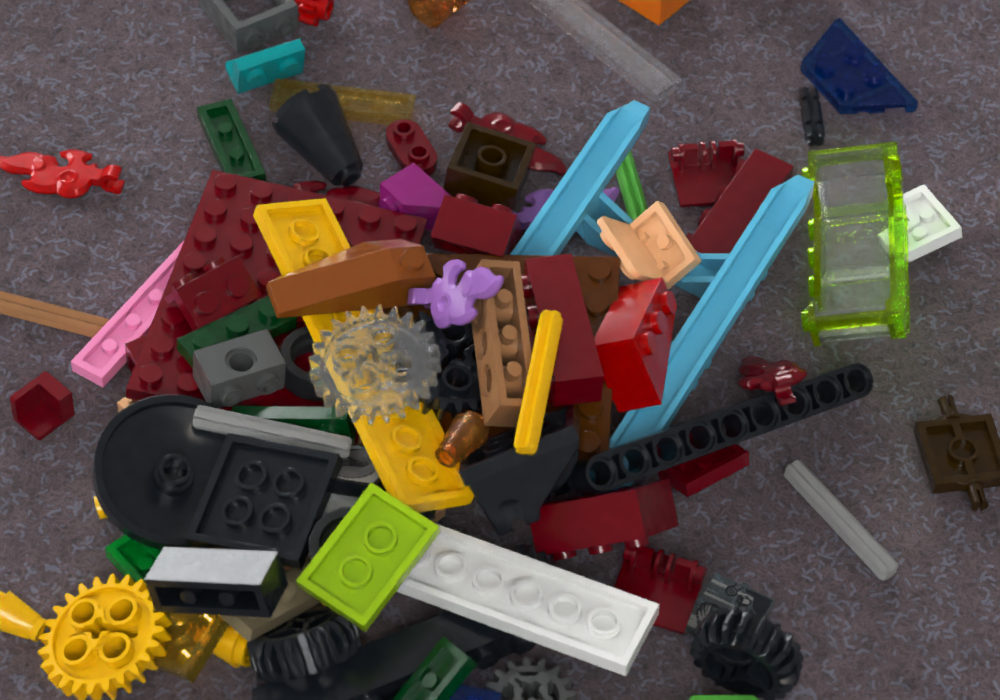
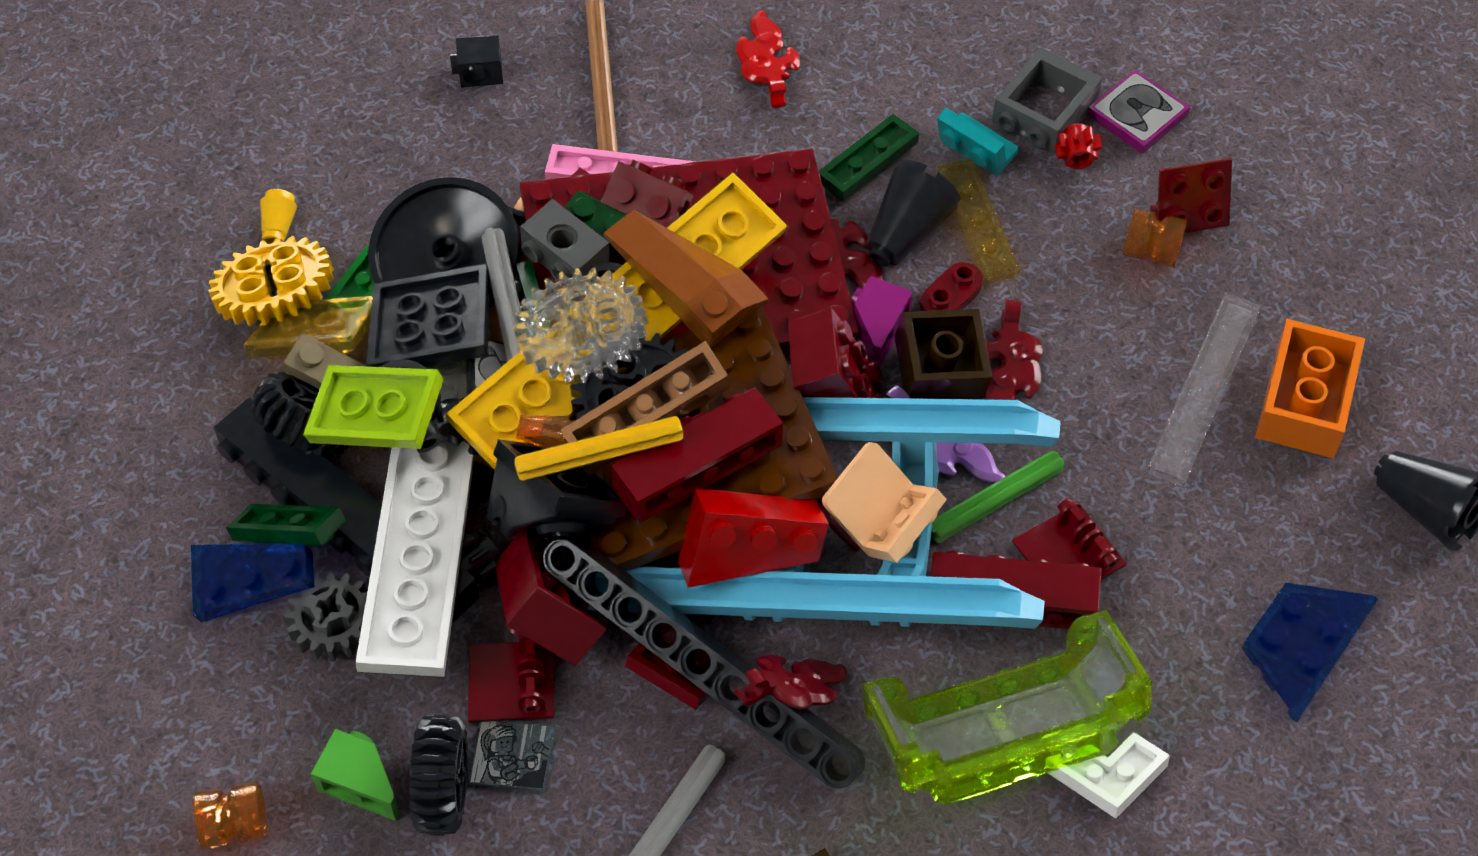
camera: 70 degrees right, 5 degrees up
(42, 405) = (501, 146): dark red panel -> none
(216, 581) = (315, 314): black brick -> none
(455, 302) = (688, 340): medium lavender piece -> none
(811, 116) = (1214, 619): black axle -> none

